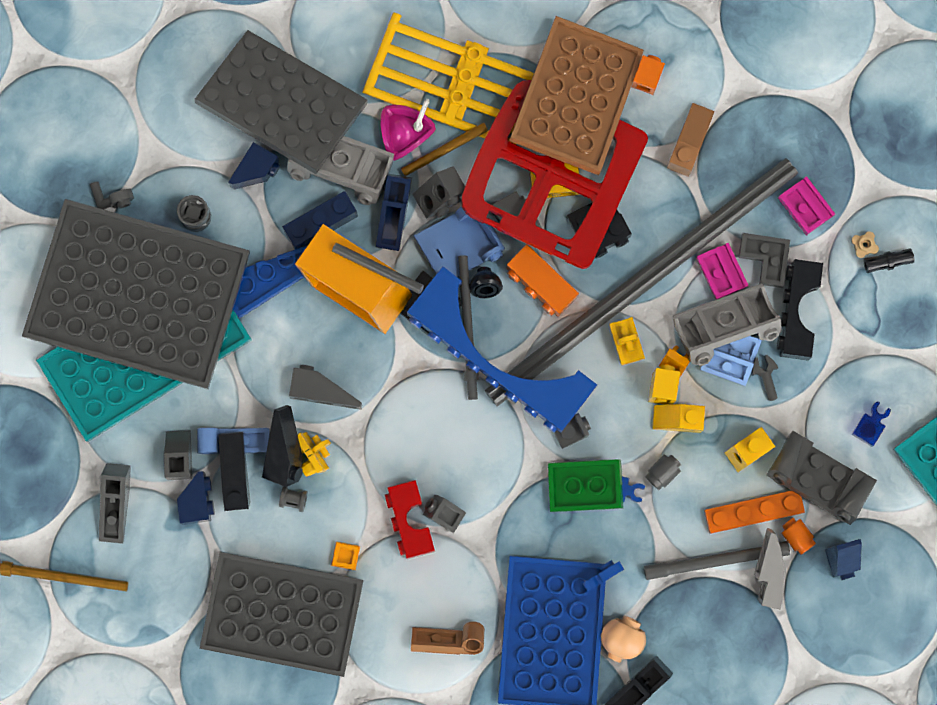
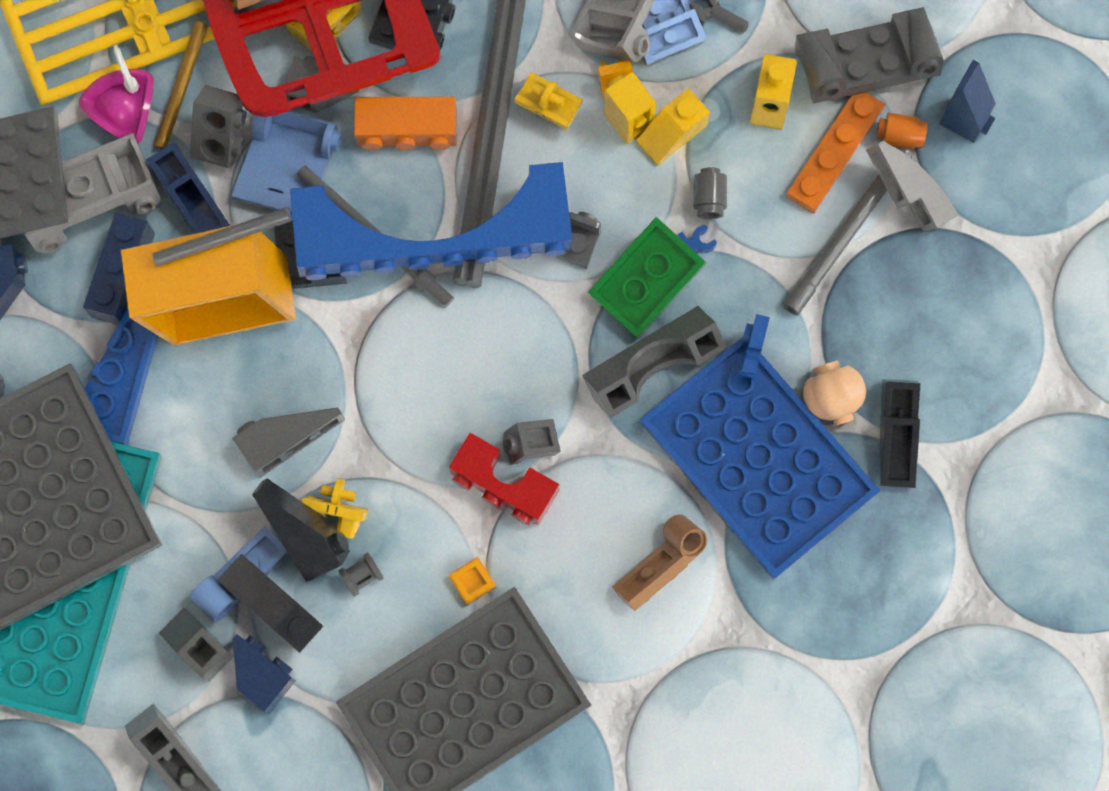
camera: 40 degrees left, 5 degrees down
(485, 283) = (351, 176): black brick -> none
(571, 536) = (684, 340): none -> dark grey arch

